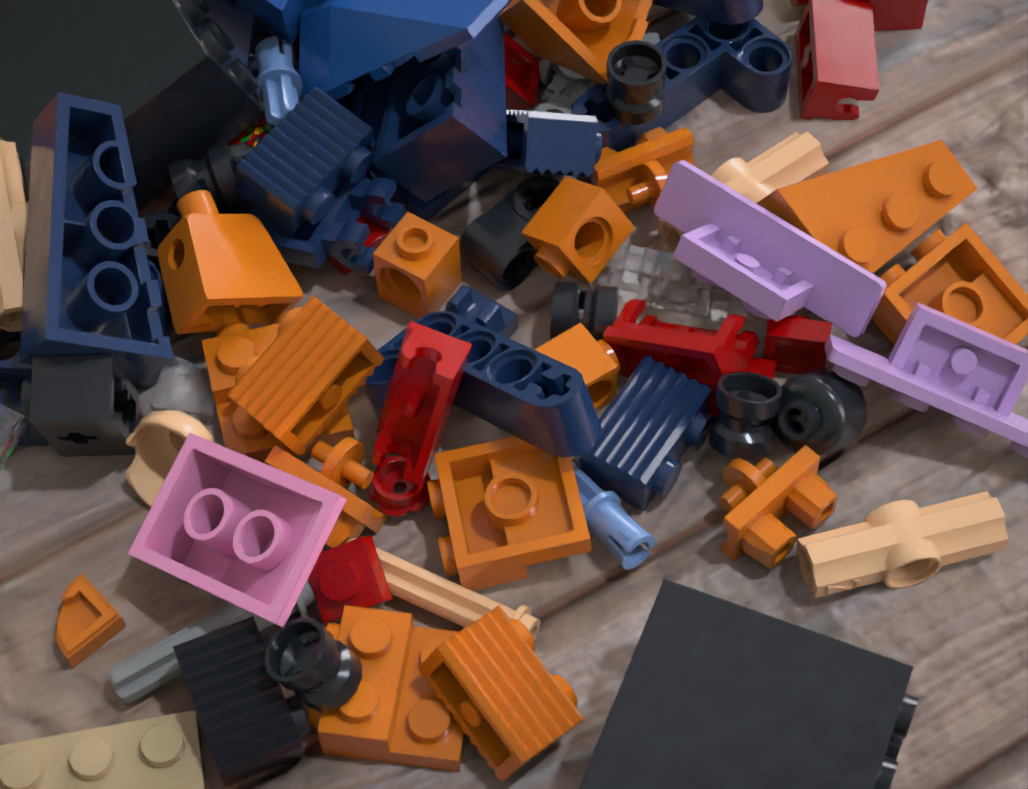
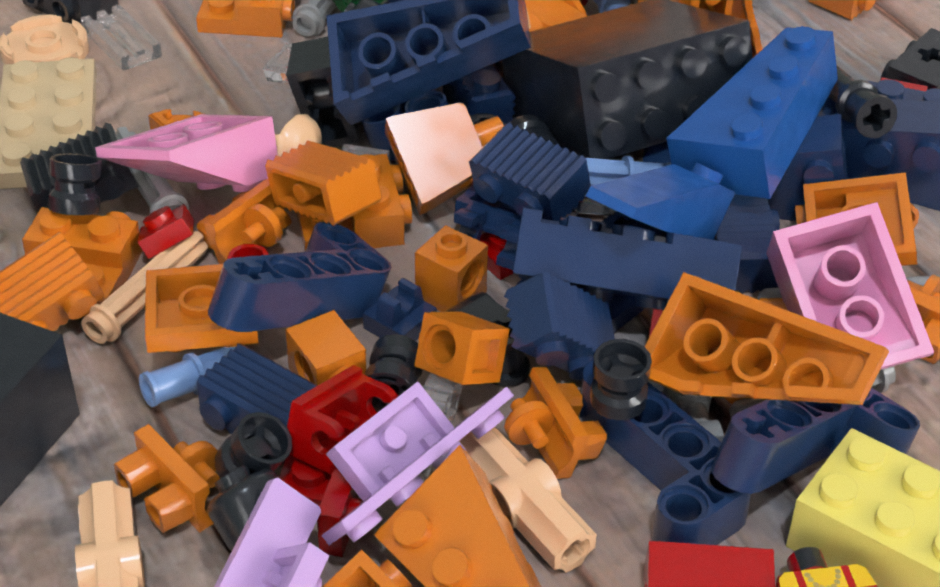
camera: 90 degrees right, 15 degrees down
(420, 398) = (283, 230): red hinge -> none

